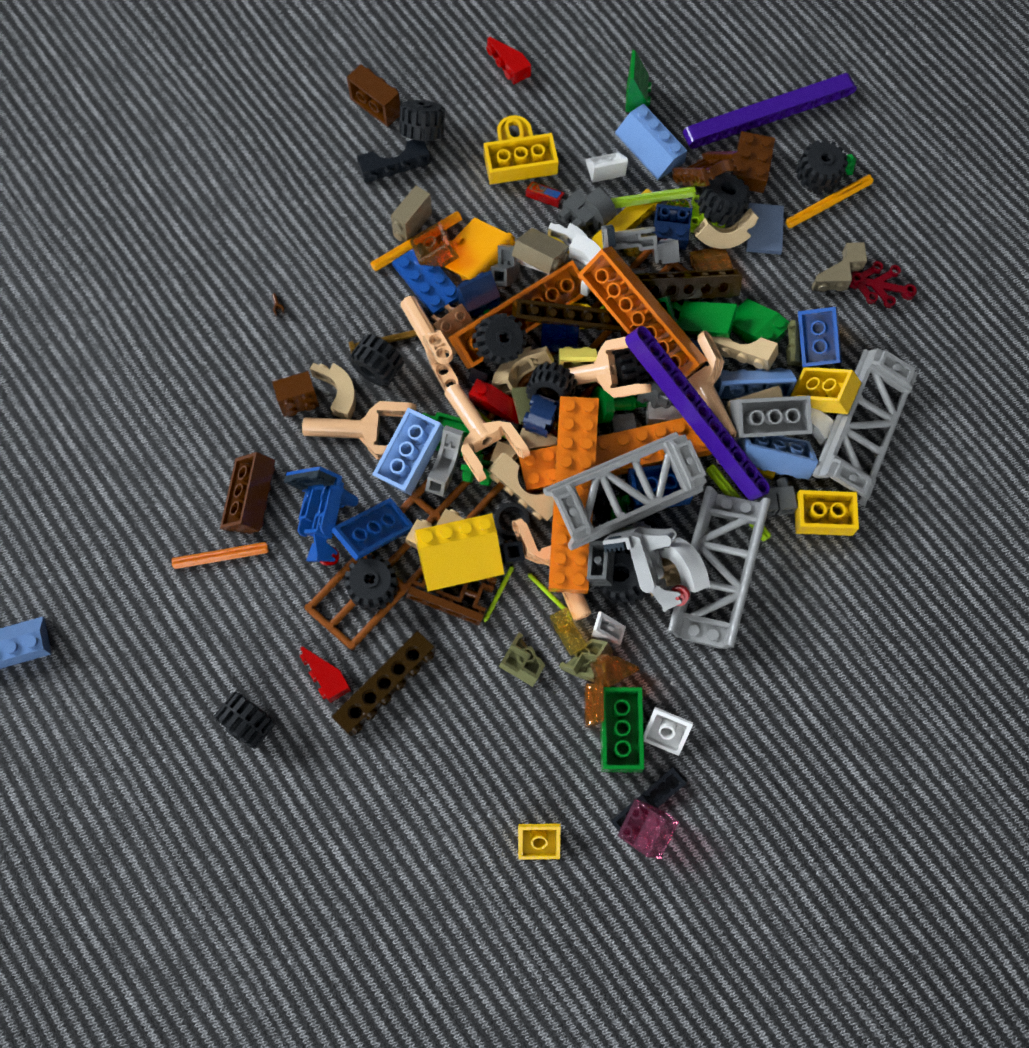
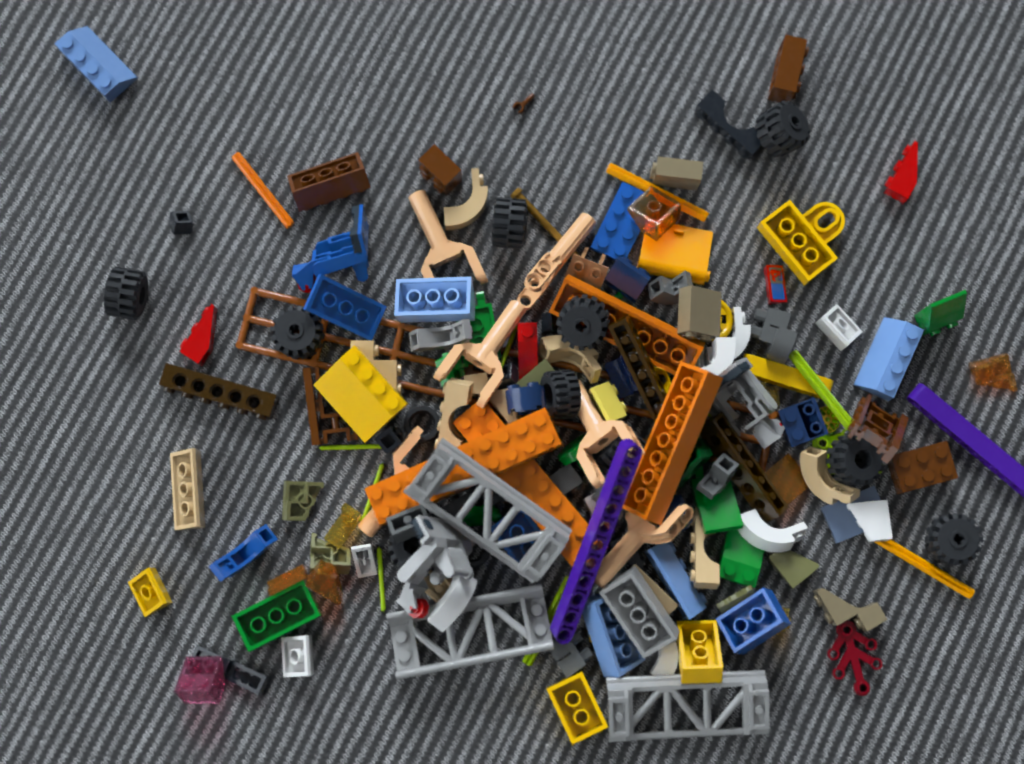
camera: 60 degrees right, 10 degrees up
(206, 642) = (181, 222): none -> black slope
(460, 758) = (187, 489): none -> tan slope
(548, 731) = (244, 554): none -> blue arch
(634, 626) = (381, 579): none -> lime axle
(685, 303) = (718, 476): none -> dark grey brick
(701, 79) = (994, 372): none -> clear orange slope
(754, 295) = (768, 538): none -> white arch
(777, 214) = (873, 519): none -> white slope
(784, 293) = (792, 566): none -> olive slope
(851, 164) = (977, 565): green plate -> none

